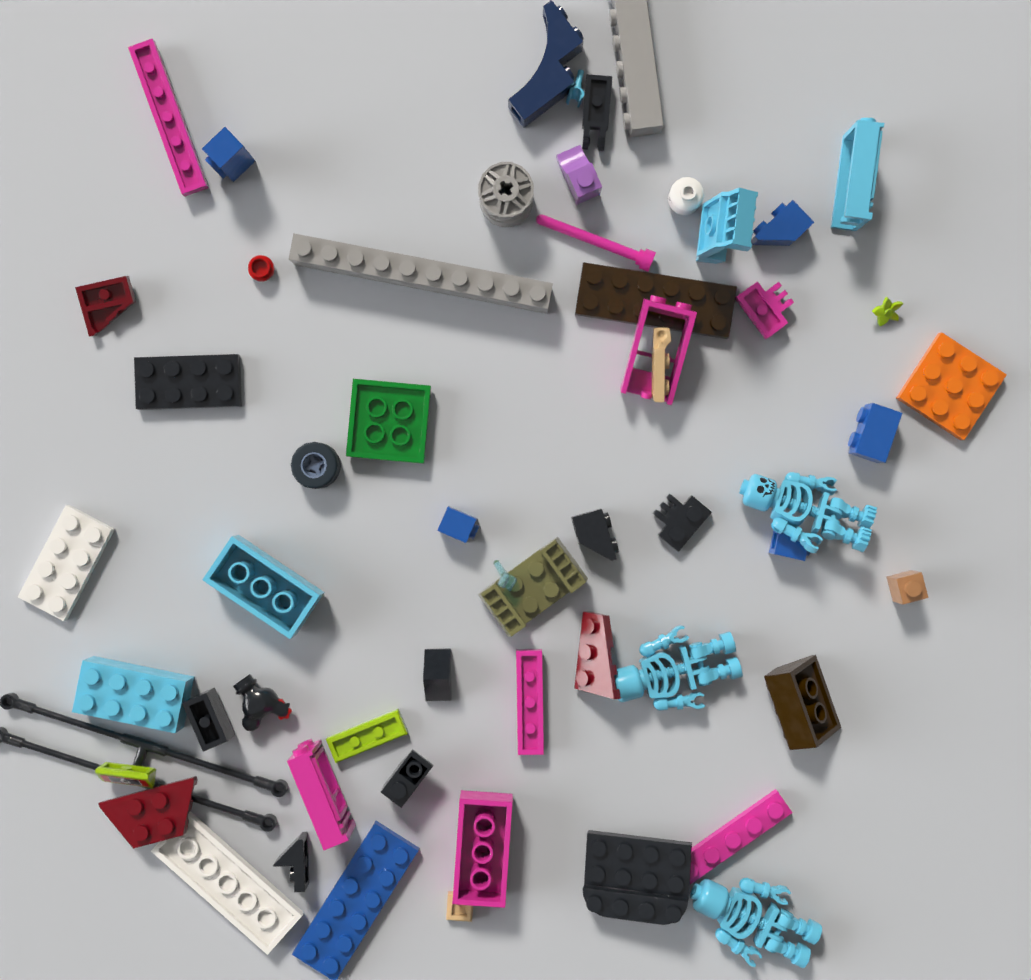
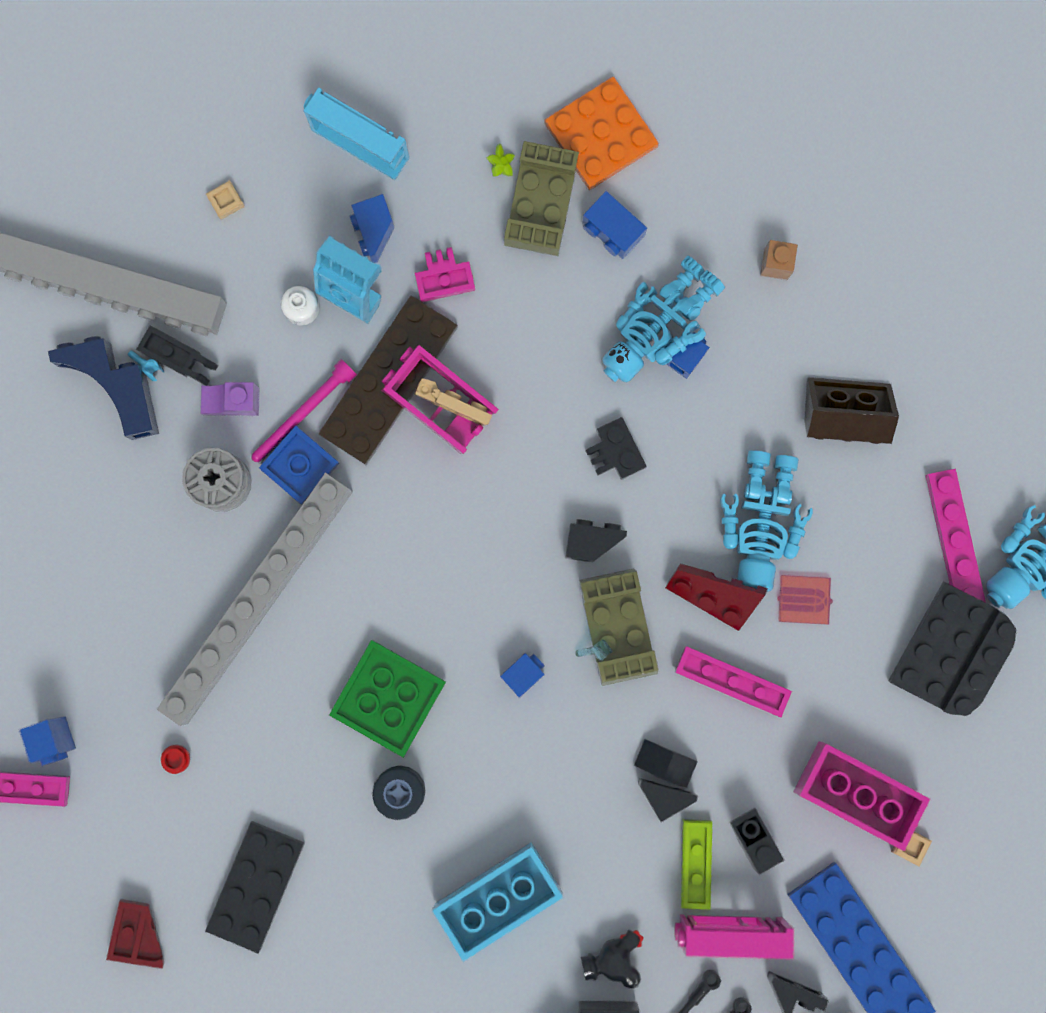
camera: 70 degrees left, 5 degrees down
(408, 688) = (666, 799): none -> black slope
(549, 257) = (298, 464): none -> blue plate
(625, 732) = (804, 599): none -> clear pink piece
(748, 90) = (225, 200): none -> tan tile
(871, 360) = (541, 198): none -> olive plate

